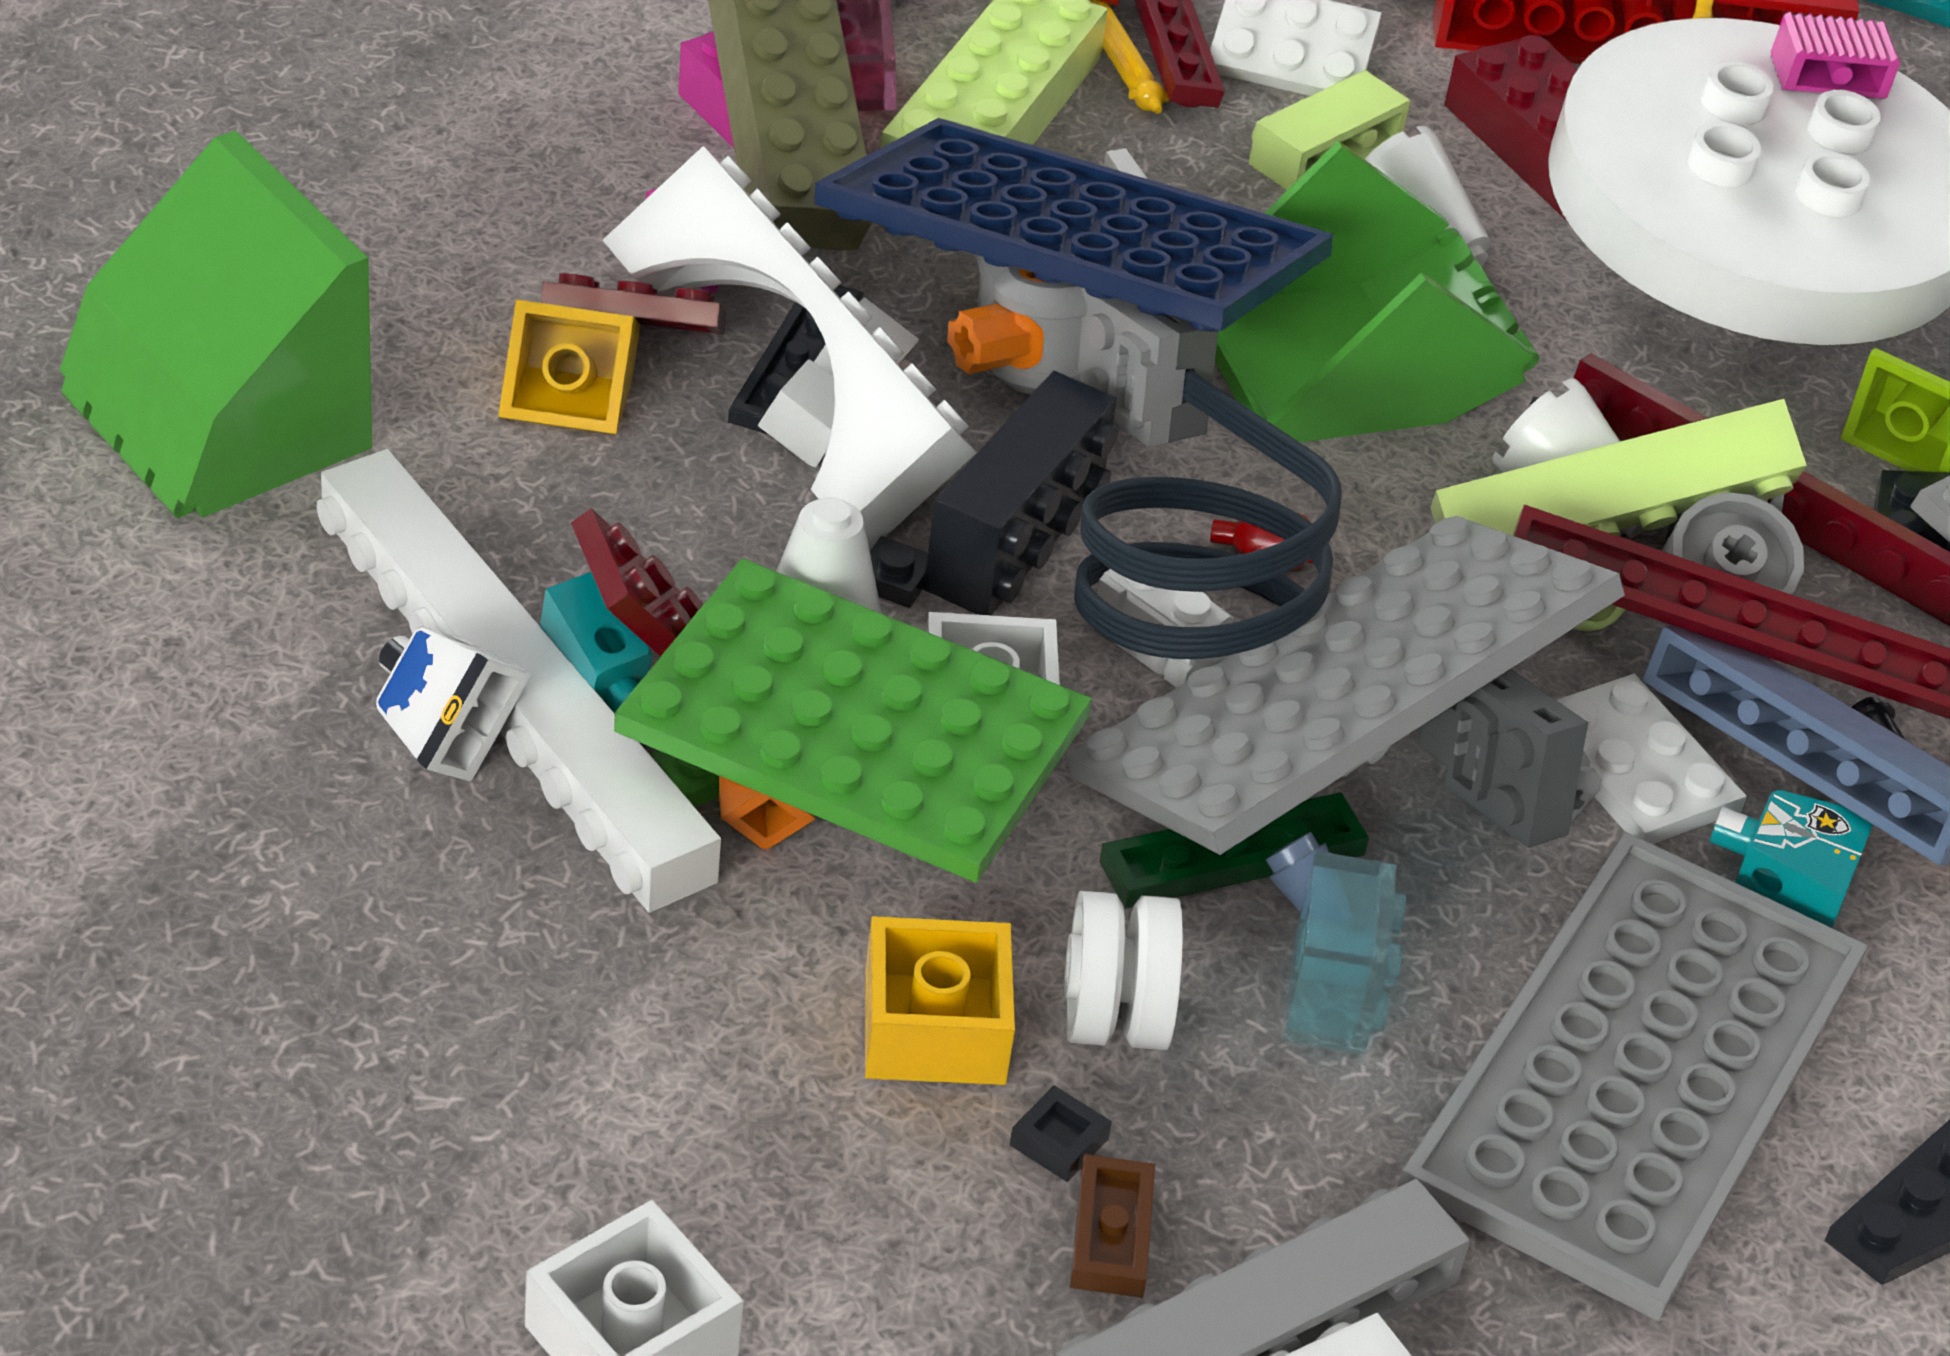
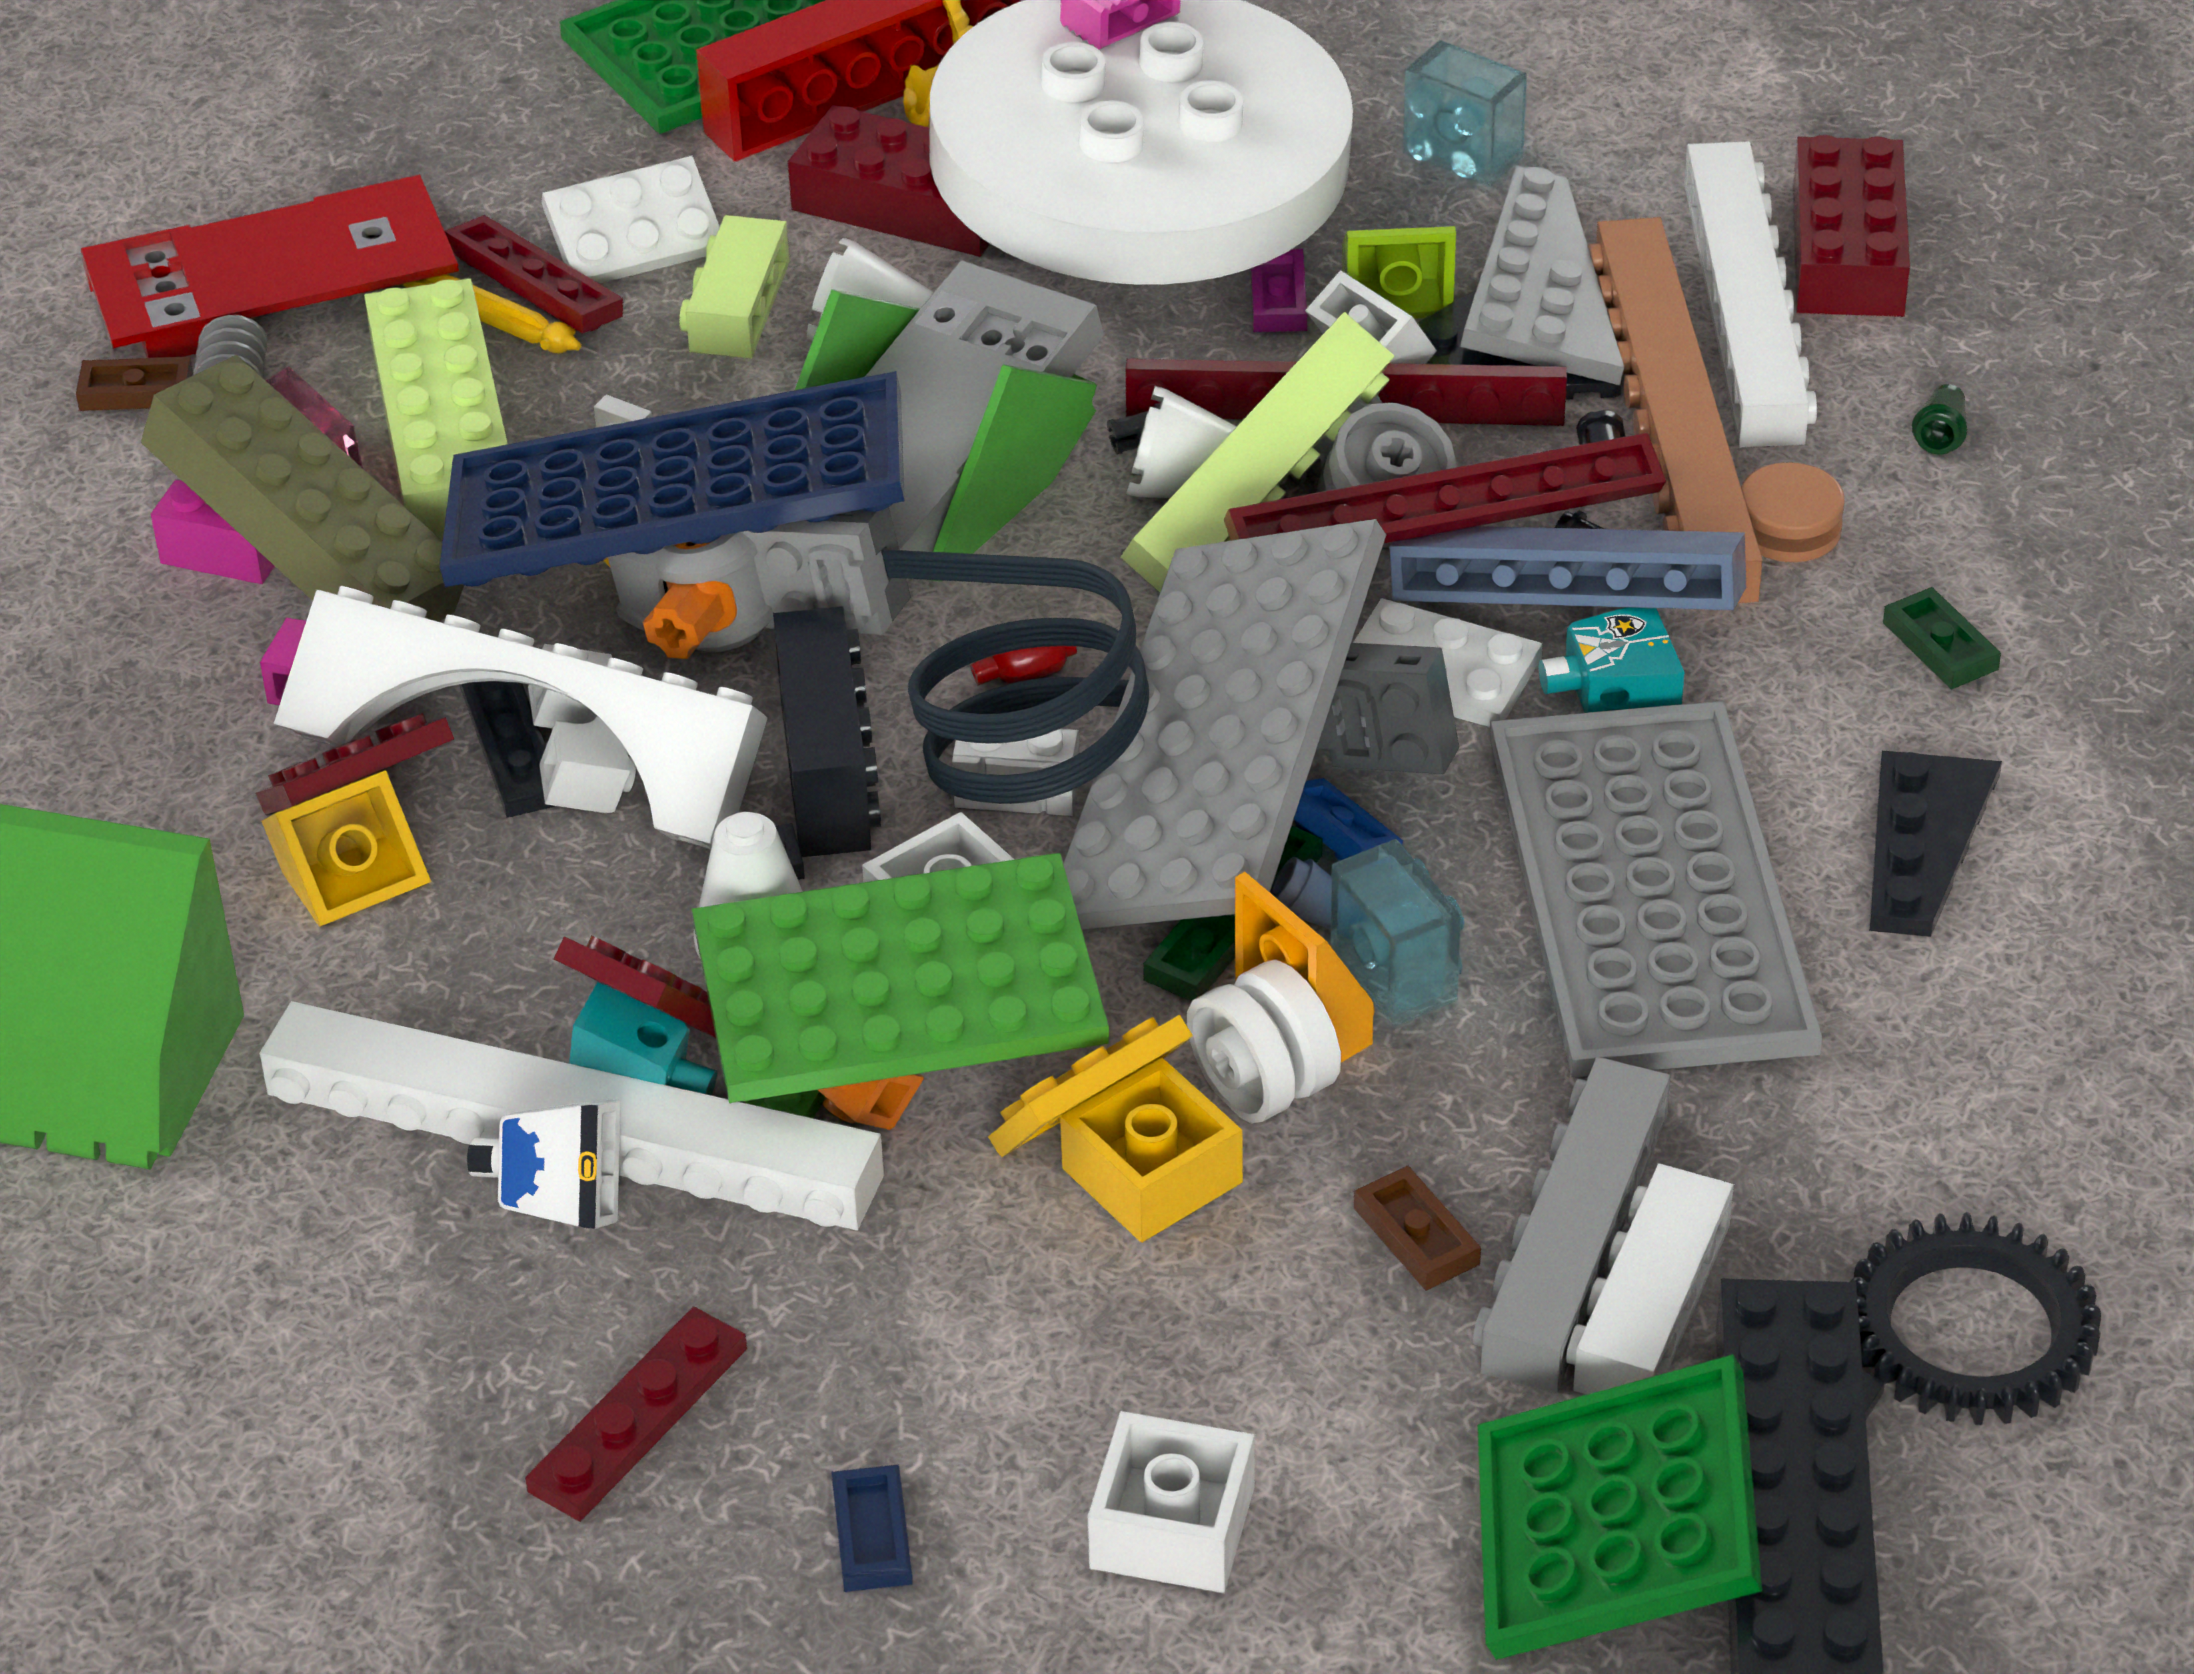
camera: 30 degrees left, 0 degrees up
(310, 940) = (636, 1413): none -> dark red plate
(387, 1164) = (871, 1528): none -> dark blue tile
(940, 900) = (1049, 1099): none -> yellow plate
(1060, 1133) = (1319, 1189): black plate -> none
(1219, 943) = (1273, 932): none -> light orange slope
(1402, 832) = (1339, 820): none -> blue plate
(1471, 249) = (950, 367): none -> light grey piece
(1798, 376) = (1280, 294): none -> magenta plate
(1839, 443) = (1379, 317): none -> white brick

